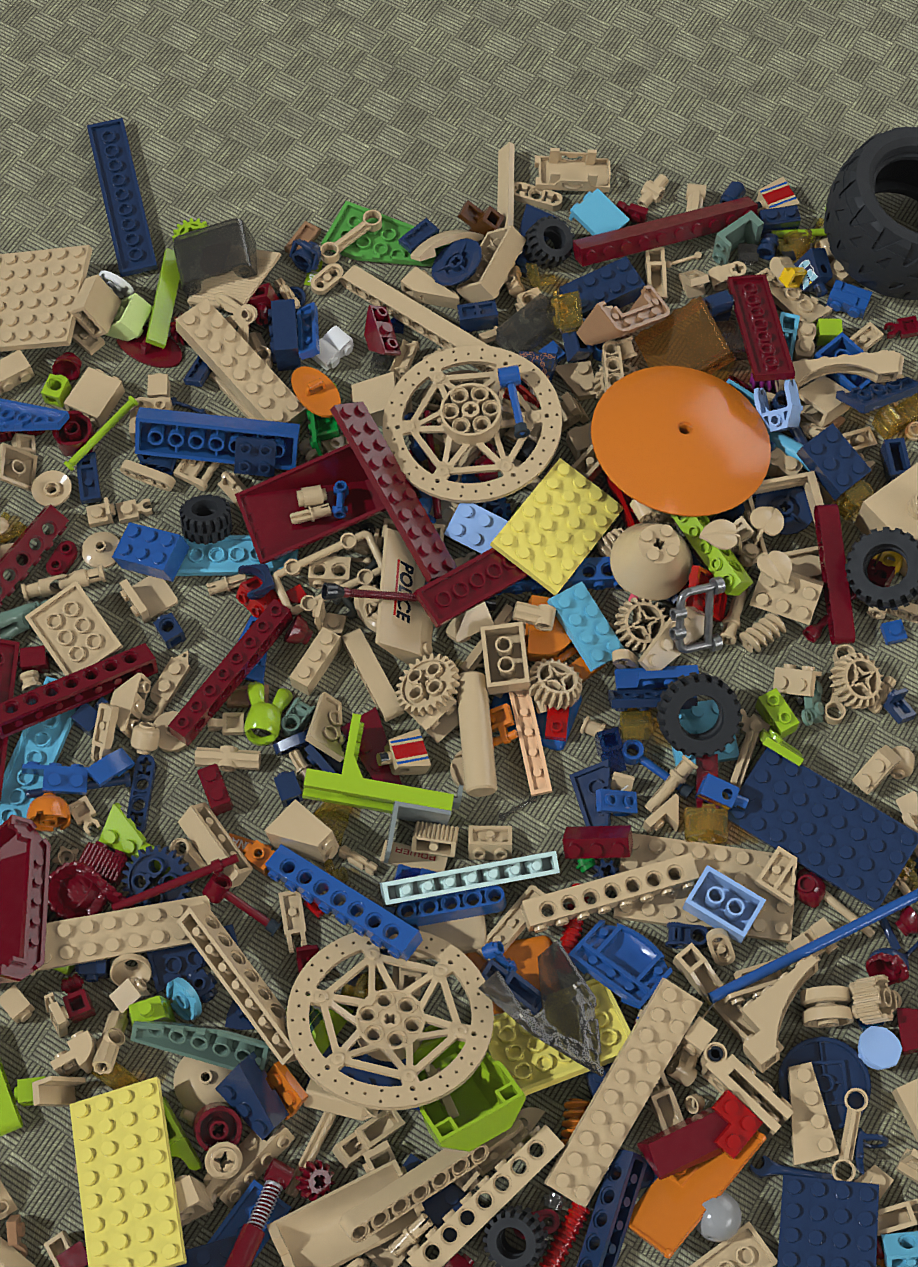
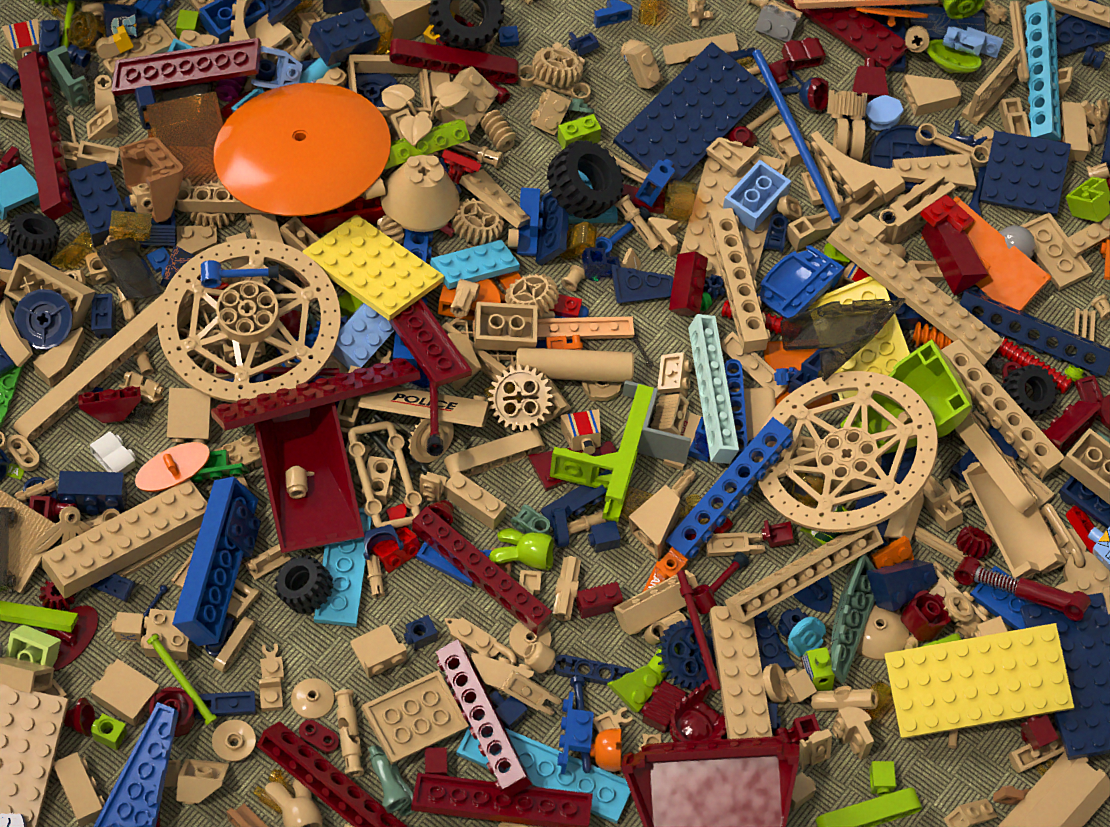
camera: 90 degrees left, 5 degrees down
(29, 680) = (461, 768): tan wheel -> none
(56, 1091) = (886, 753): tan panel -> none
(110, 766) = (569, 689): blue slope -> none
(151, 551) = (332, 640): blue brick -> none
(308, 331) = (117, 463): blue plate -> none
(311, 513) = (316, 485): tan axle -> none
(325, 727) = (554, 495): tan wing -> none
(341, 492) = (294, 457): blue bar -> none
(410, 1235) = (1025, 467): tan pin -> none
(616, 802) = (651, 264): blue plate -> none
(694, 1103) = (917, 255): tan hinge -> none
(712, 642) = (500, 170): flat silver bar -> none
(775, 742) = (616, 130): lime plate -> none

